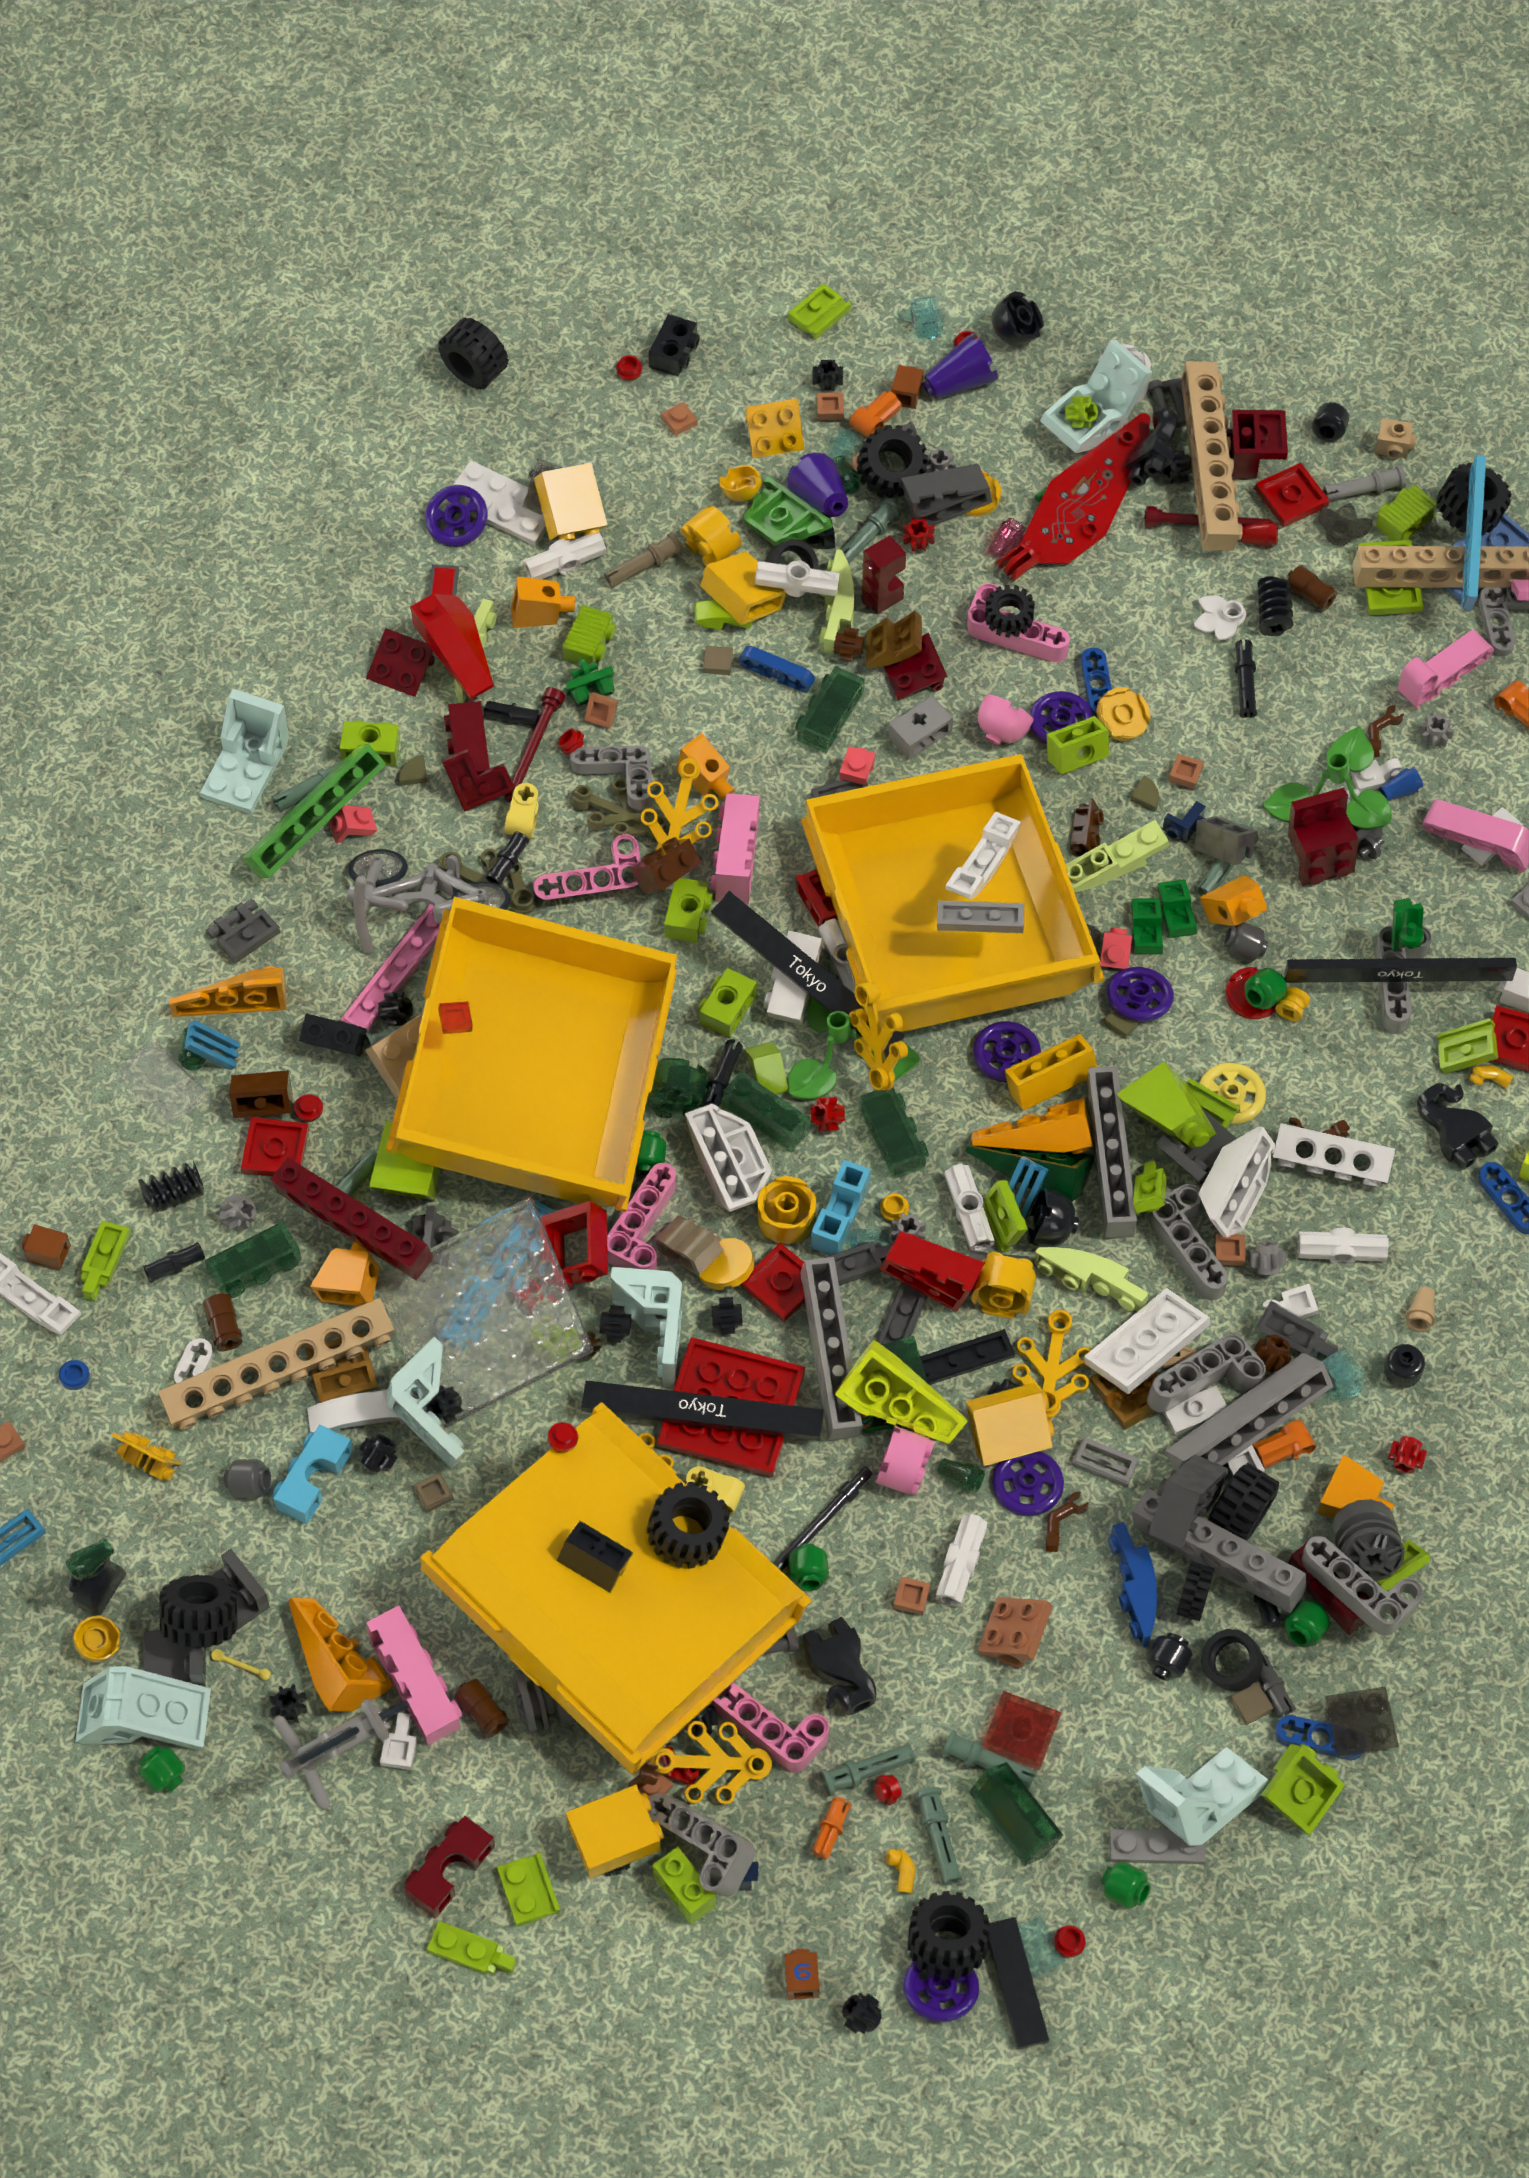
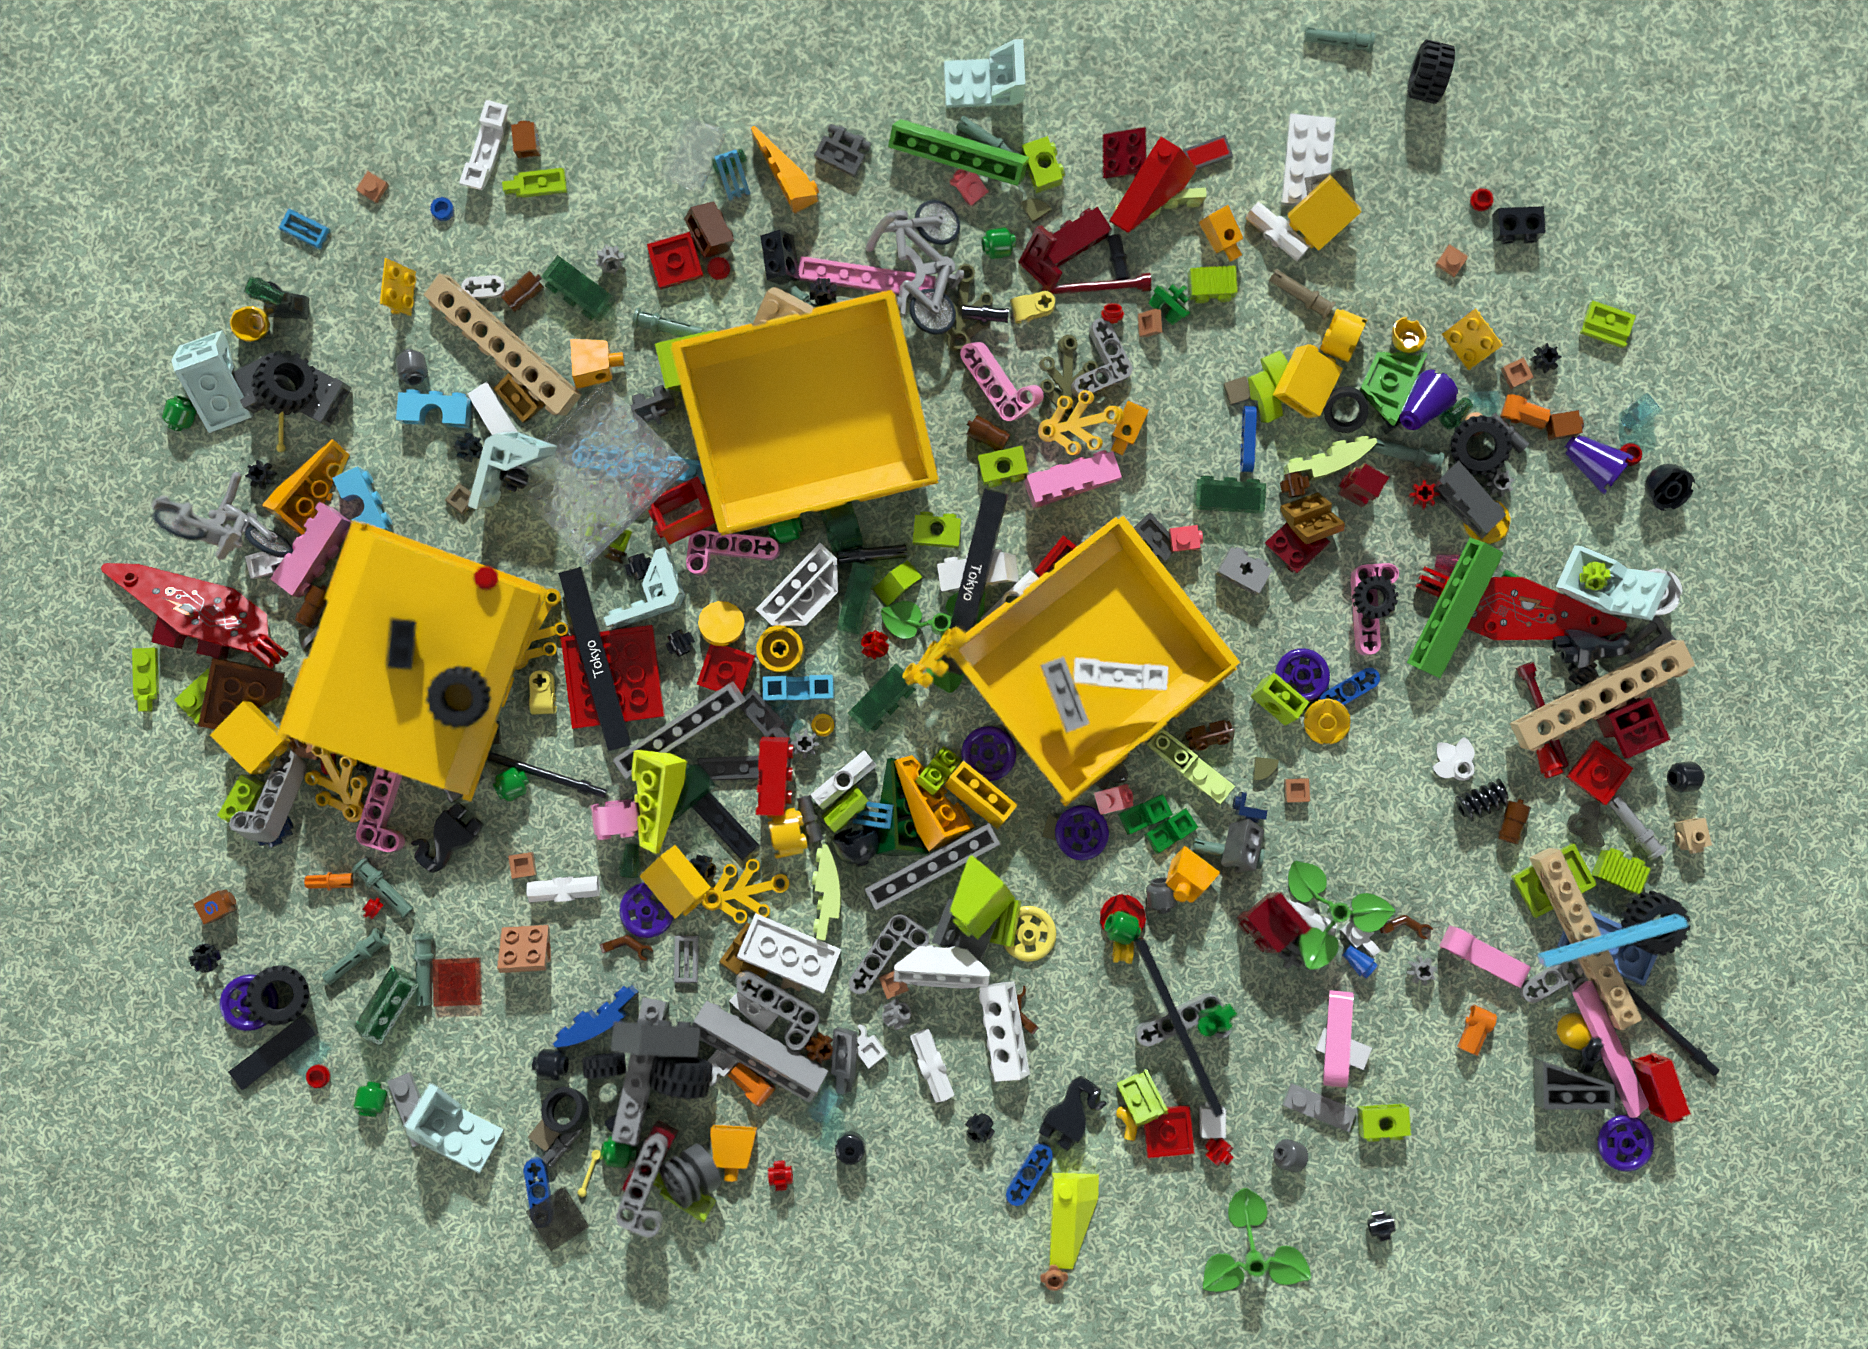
camera: 65 degrees right, 25 degrees up
(171, 1186) = (608, 204): black piece -> none
(174, 1262) = (555, 234): black pin -> none
(352, 1218) = (626, 343): dark red brick -> none
(361, 1595) = (357, 484): none -> medium azure arch
(394, 416) = (1350, 39): none -> sand green pin
(420, 1840) = (200, 609): none -> wing
(434, 817) = (998, 243): none -> green head
(455, 1017) = (790, 342): clear red tile -> none
(472, 529) = (1271, 114): dark purple plate -> none
(541, 1840) = (233, 683): none -> reddish brown plate
(641, 911) = (986, 432): none -> reddish brown piece
(666, 865) = (1025, 434): reddish brown brick -> none
(689, 1244) = (722, 591): dark tan brick -> none
(731, 633) = (1262, 389): none -> lime slope
(796, 578) = (1323, 404): white piece -> none
(905, 1867) = (322, 944): yellow arm -> none
(1001, 1106) = (938, 770): none -> lime slope
(1002, 721) = (1275, 632): bright pink cylinder -> none
(1055, 547) = (1455, 607): none -> bright green brick
(1149, 1188) = (910, 908): lime hinge -> none
(1245, 669) = (1413, 799): black pin -> none
(1301, 1657) = (595, 1155): none -> light yellow hinge
(1303, 1787) = (487, 1197): lime plate -> none
(1422, 1311) = (905, 1142): tan cone -> none
(1435, 1223) = (980, 1128): none -> black gear

